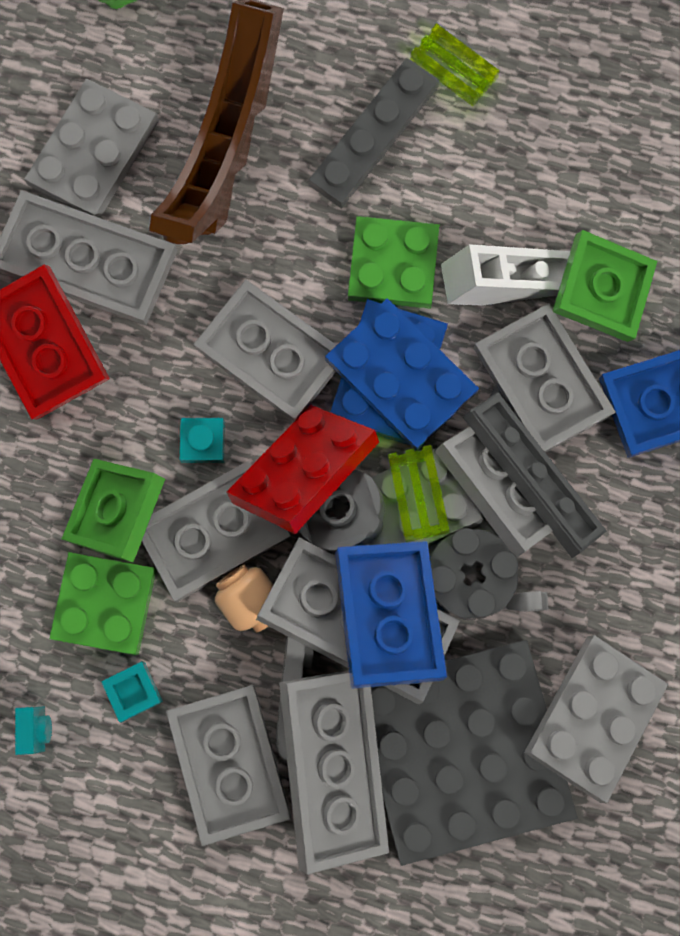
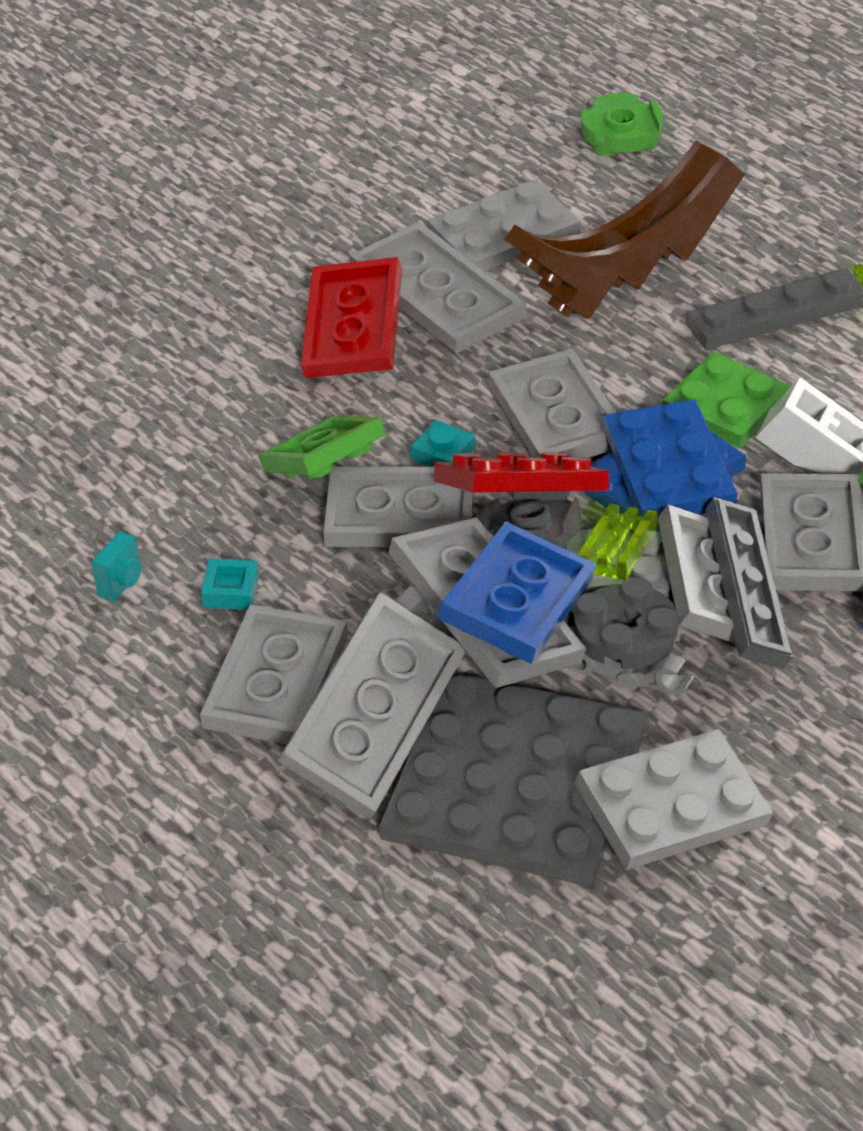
camera: 30 degrees right, 35 degrees down
(103, 603) = (256, 518): bright green plate -> none
(242, 597) = (378, 568): light nougat head -> none

